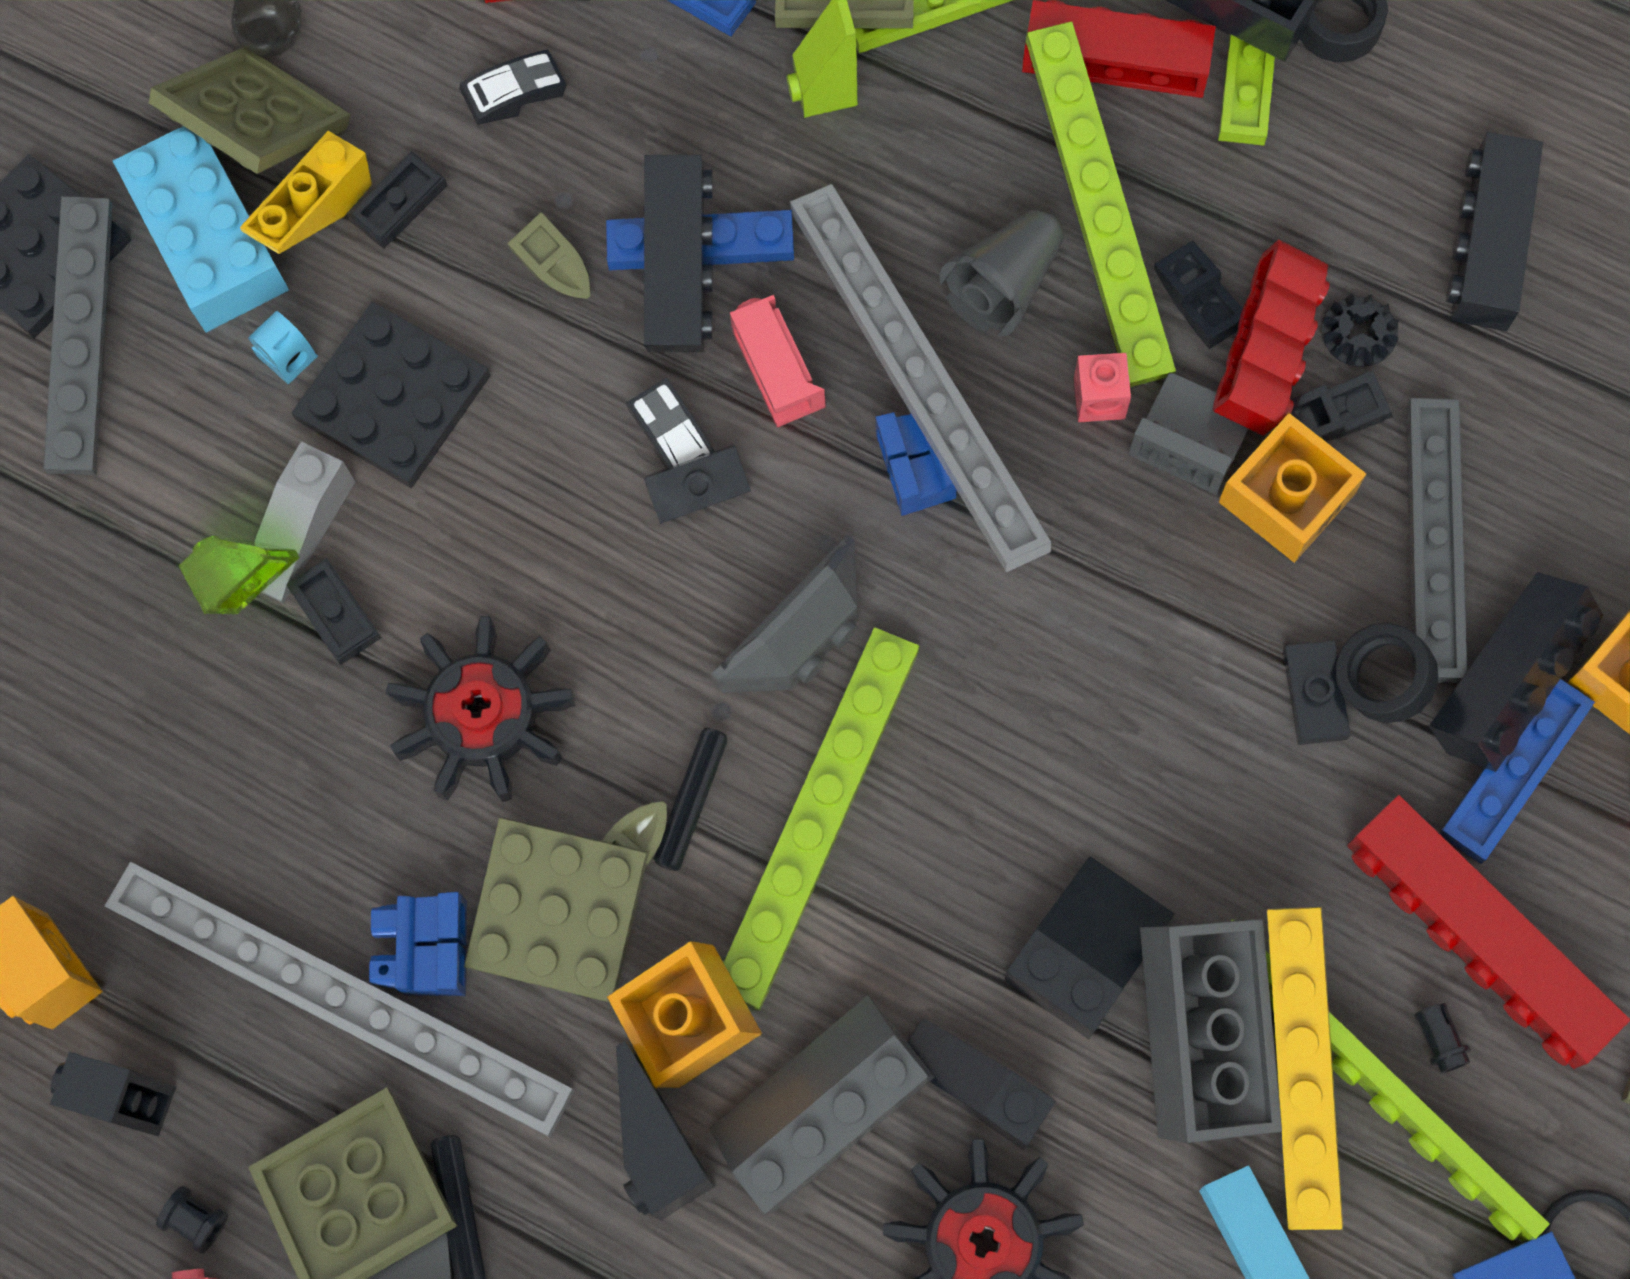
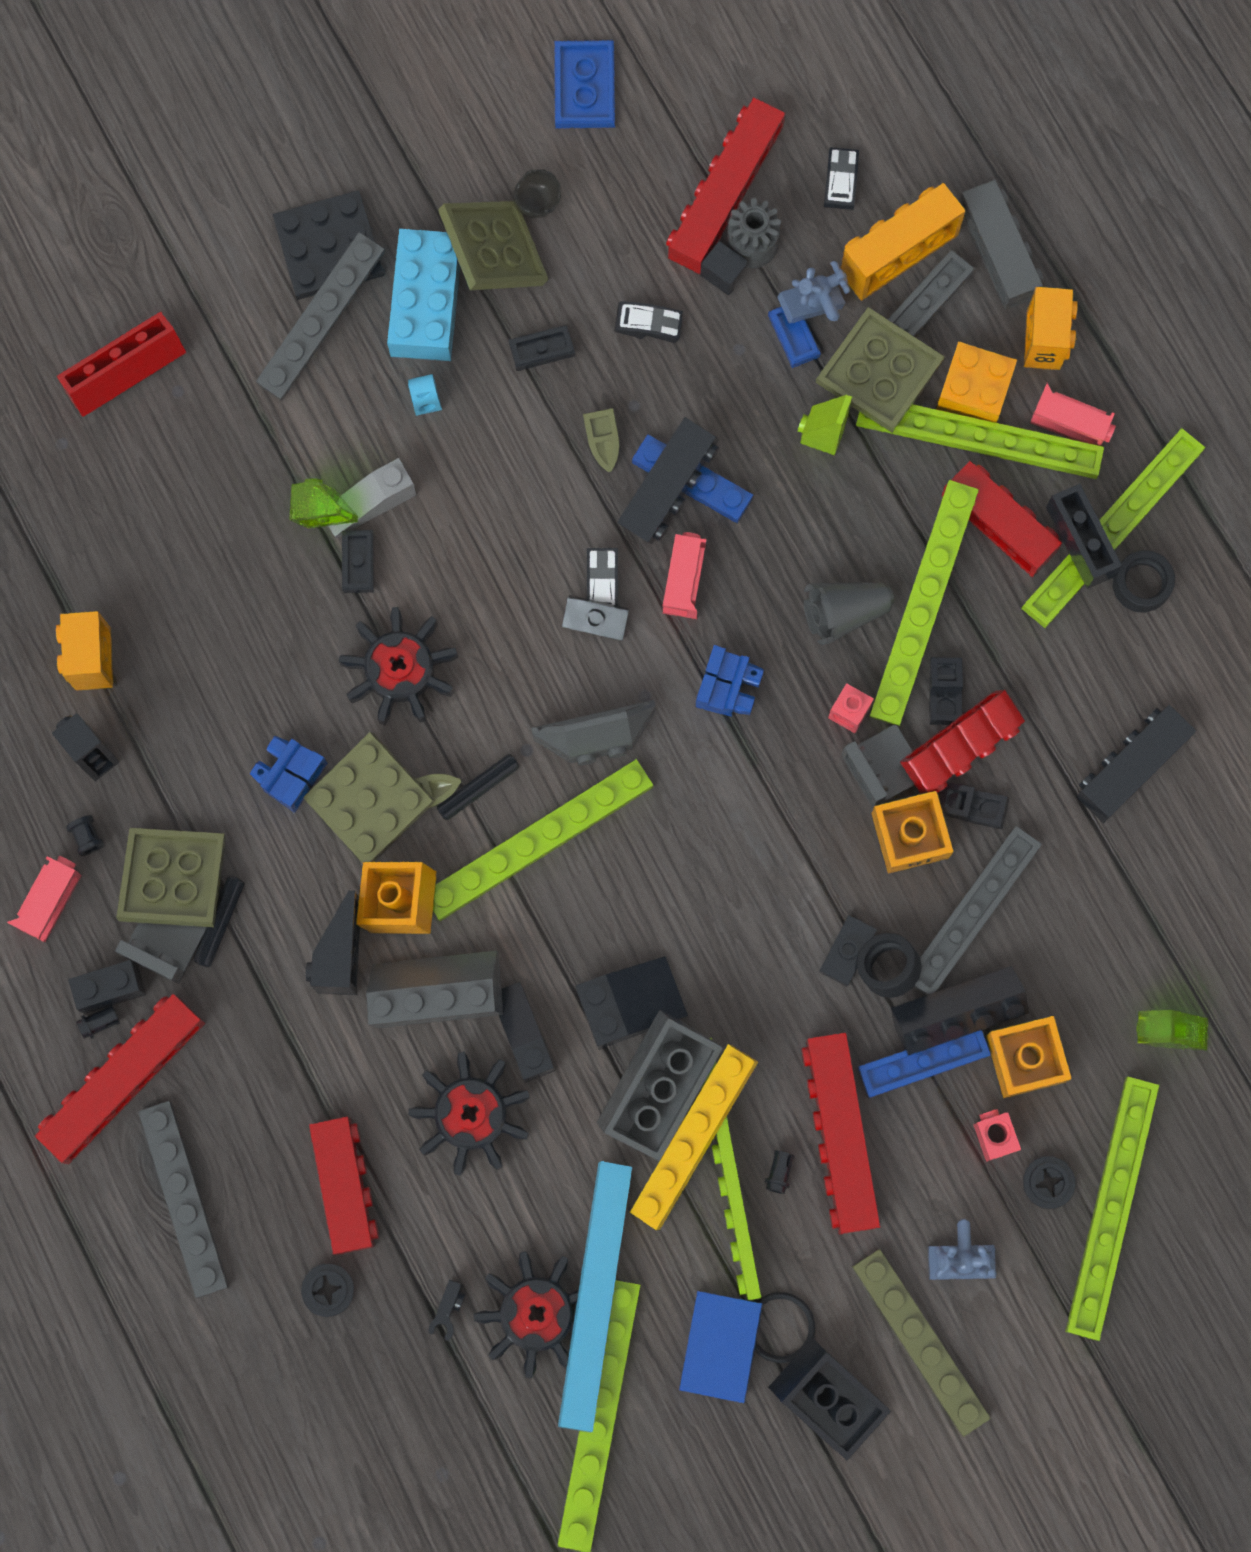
camera: 30 degrees right, 5 degrees up
(311, 195) = (493, 318): yellow slope -> none
(341, 999) = (229, 772): light grey plate -> none
(391, 394) = (467, 458): black plate -> none
(921, 380) = (751, 637): light grey plate -> none
(1359, 350) = (1010, 780): black gear -> none

